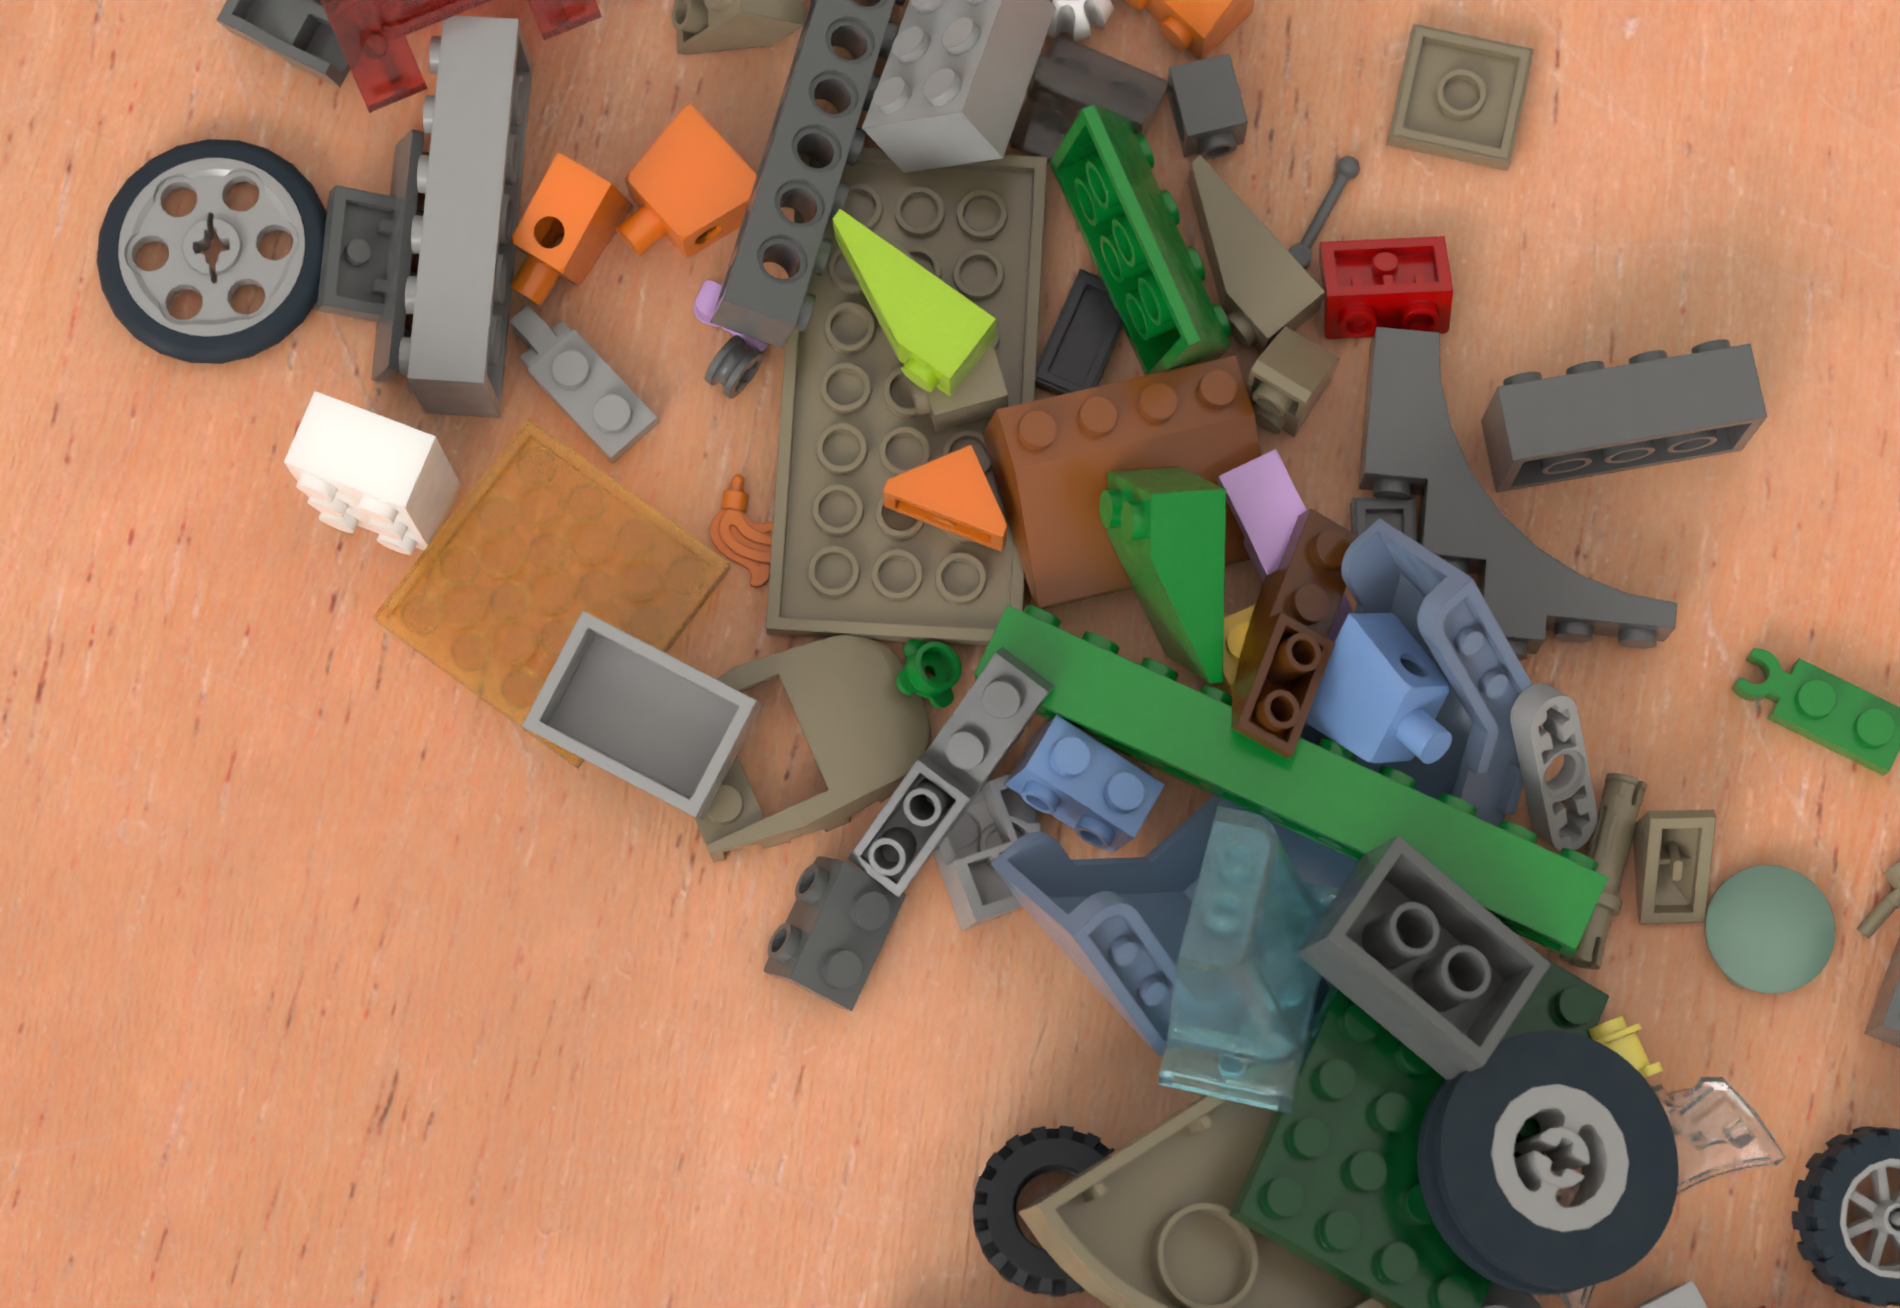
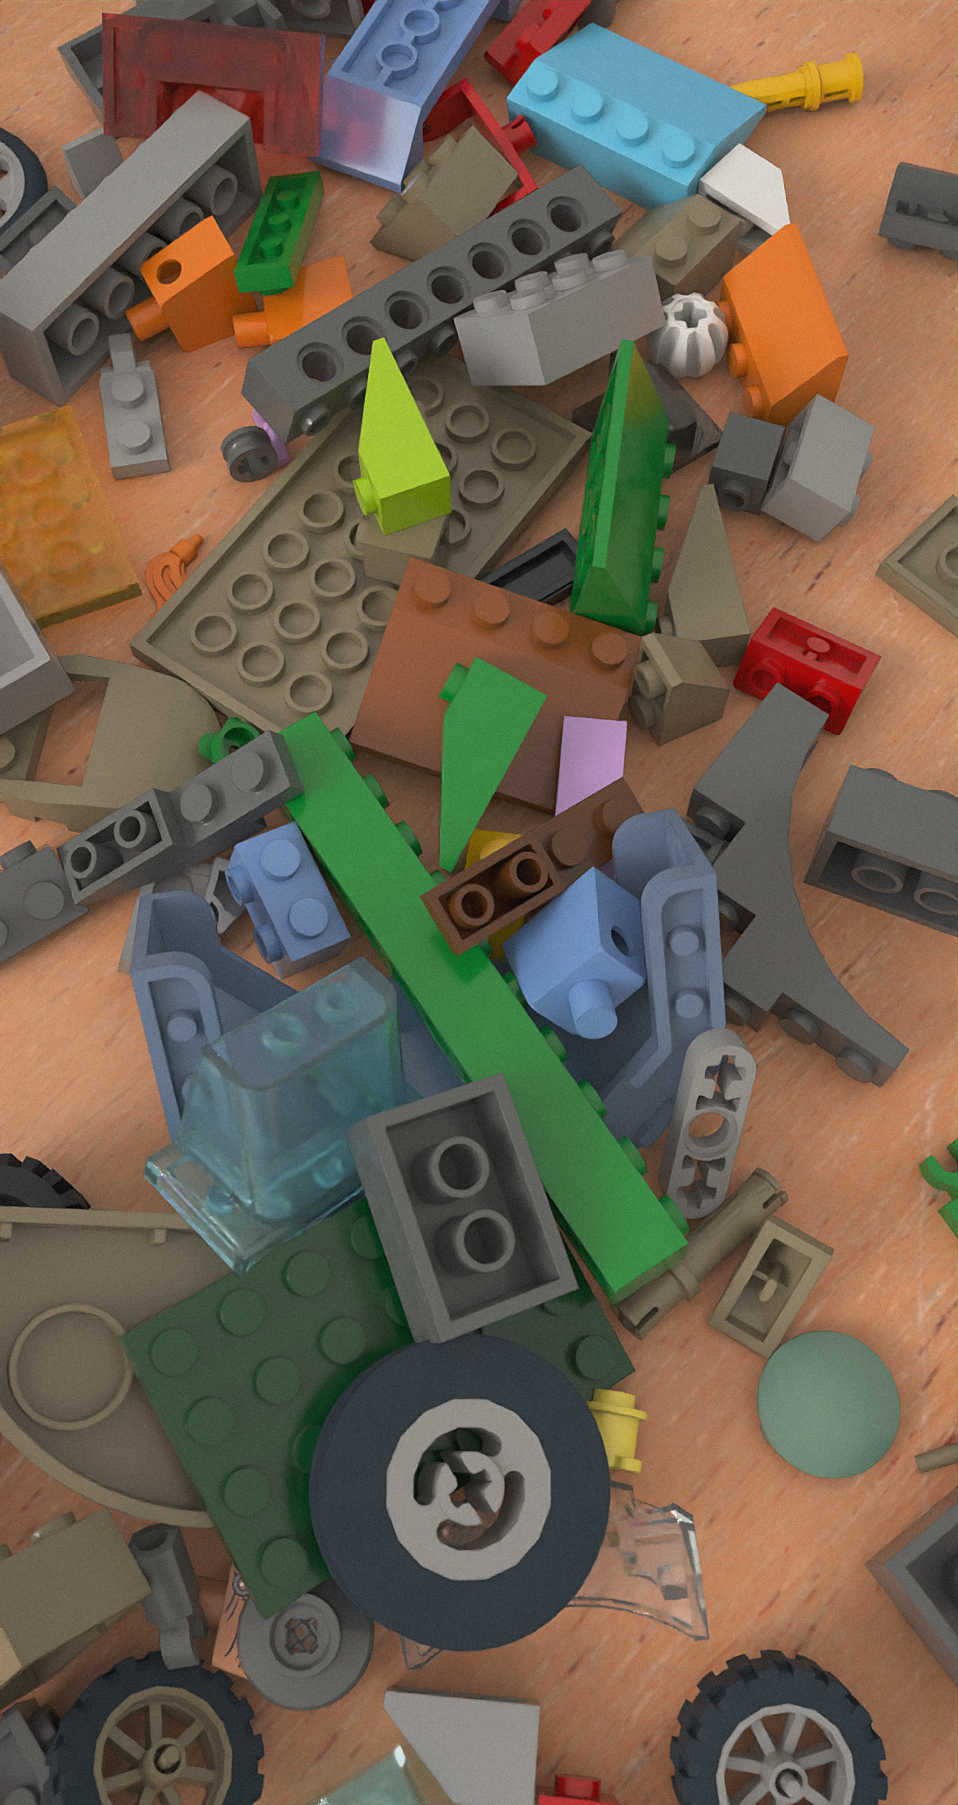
camera: 30 degrees right, 10 degrees down
(348, 132) = (91, 160): none -> light grey slope
(611, 116) = (279, 233): none -> green plate
(950, 496) = (337, 615): orange slope -> none
(1282, 75) = (819, 469): none -> light grey brick
(1347, 169) = (831, 573): dark grey hinge -> none

